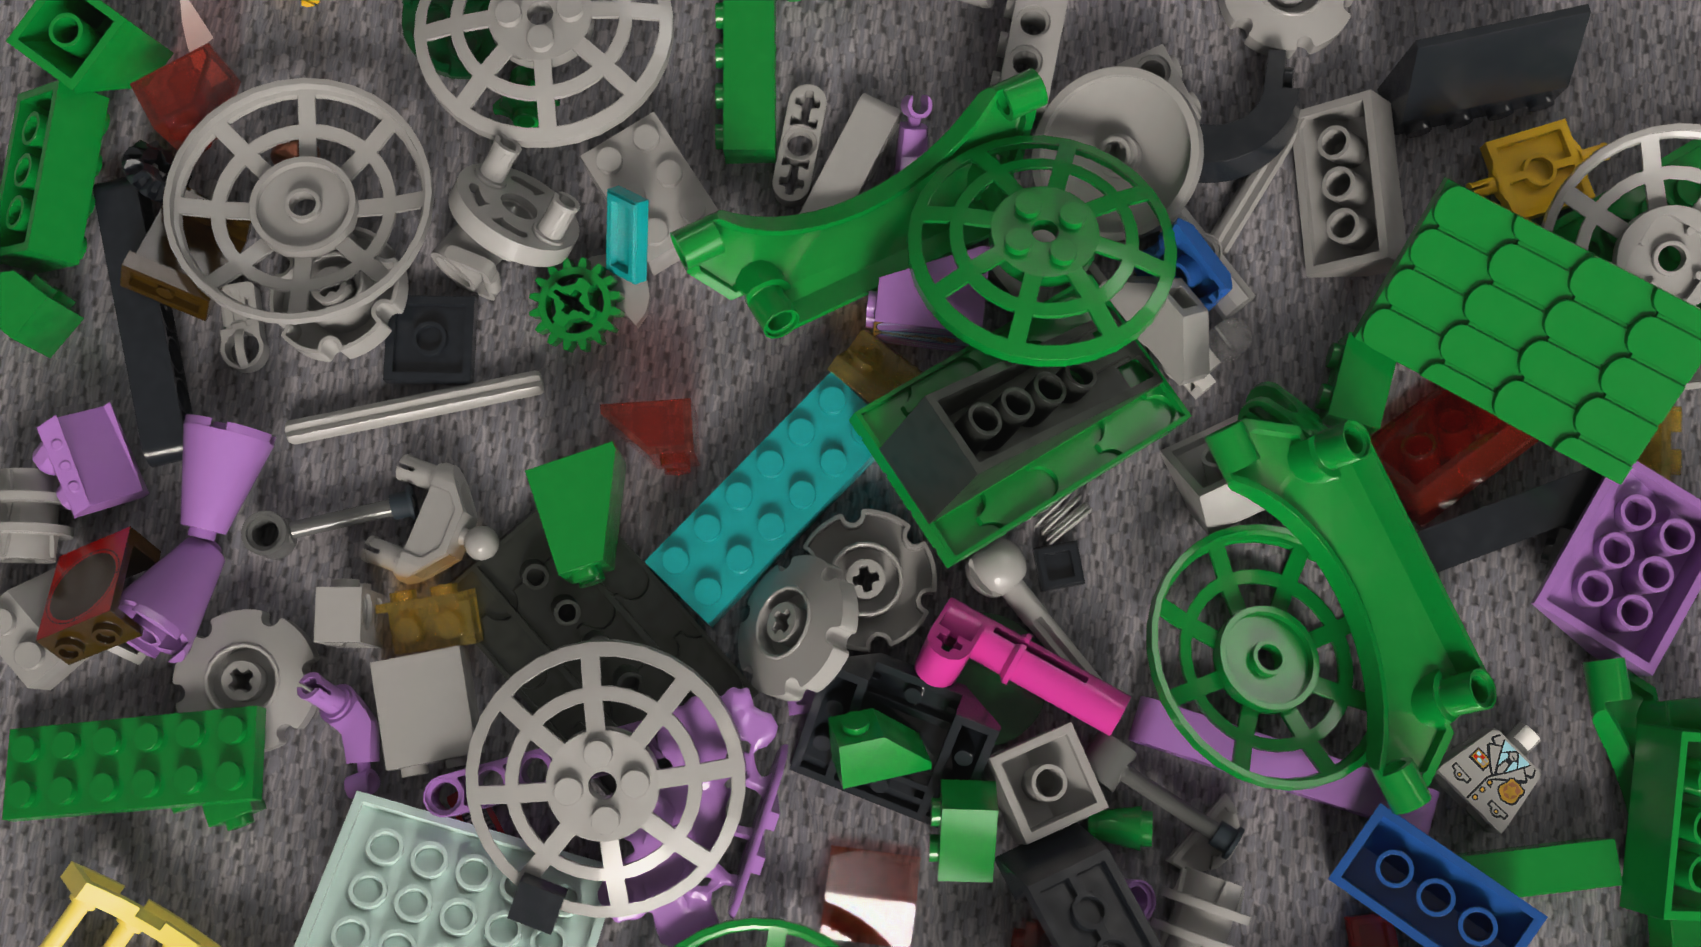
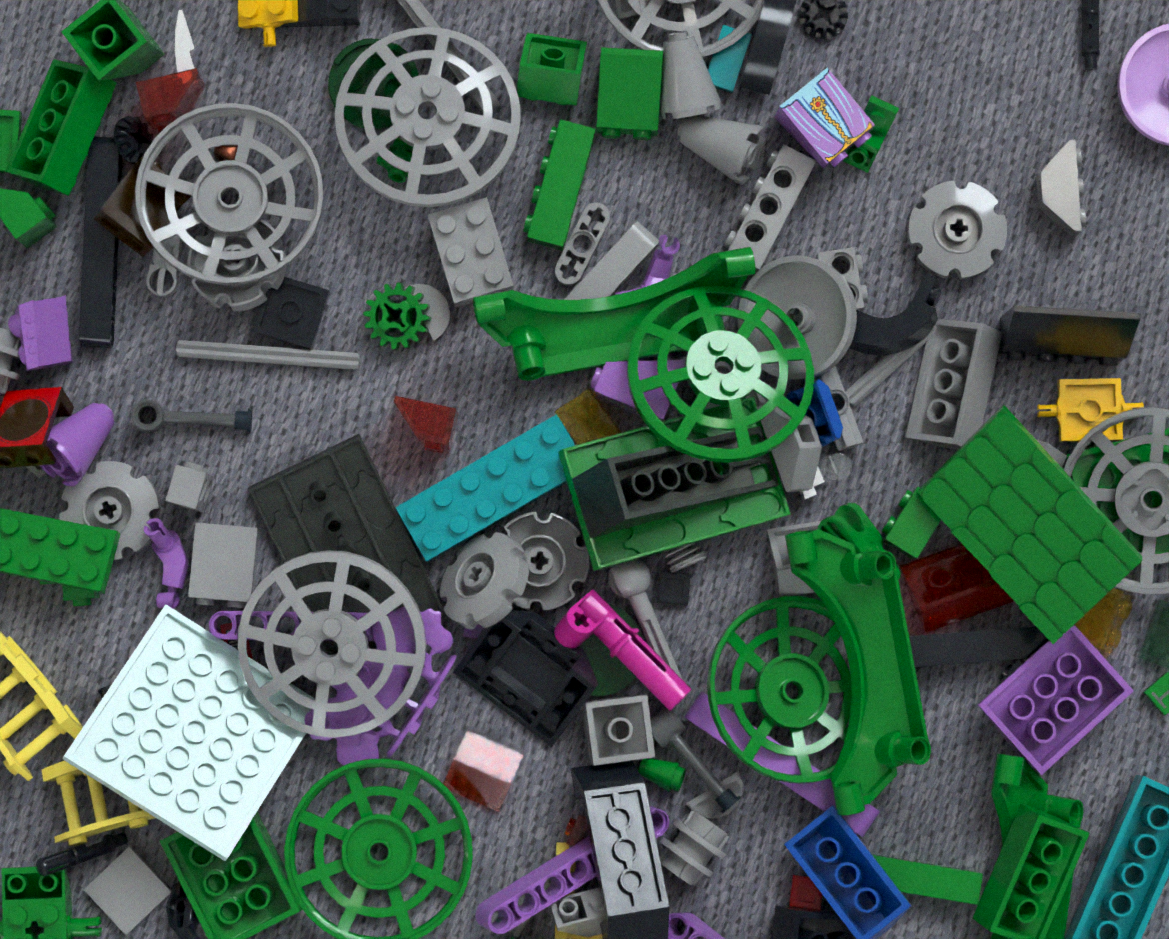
camera: 15 degrees right, 5 degrees up
(218, 472) = (126, 365): medium lavender cone -> none
(434, 620) = (243, 505): clear yellow bracket -> none
(441, 530) = (264, 445): light grey connector -> none
(468, 264) = (334, 261): light grey piece -> none
(516, 212) = (377, 246): light grey piece -> none
(537, 903) = (265, 711): black tile -> none
(581, 511) = (362, 463): green slope -> none
(627, 234) = (444, 280): teal tile -> none
(874, 748) = (512, 674): green slope -> none
(966, 830) = (557, 745): green brick -> none
(1490, 775) = (917, 809): light grey torso -> none

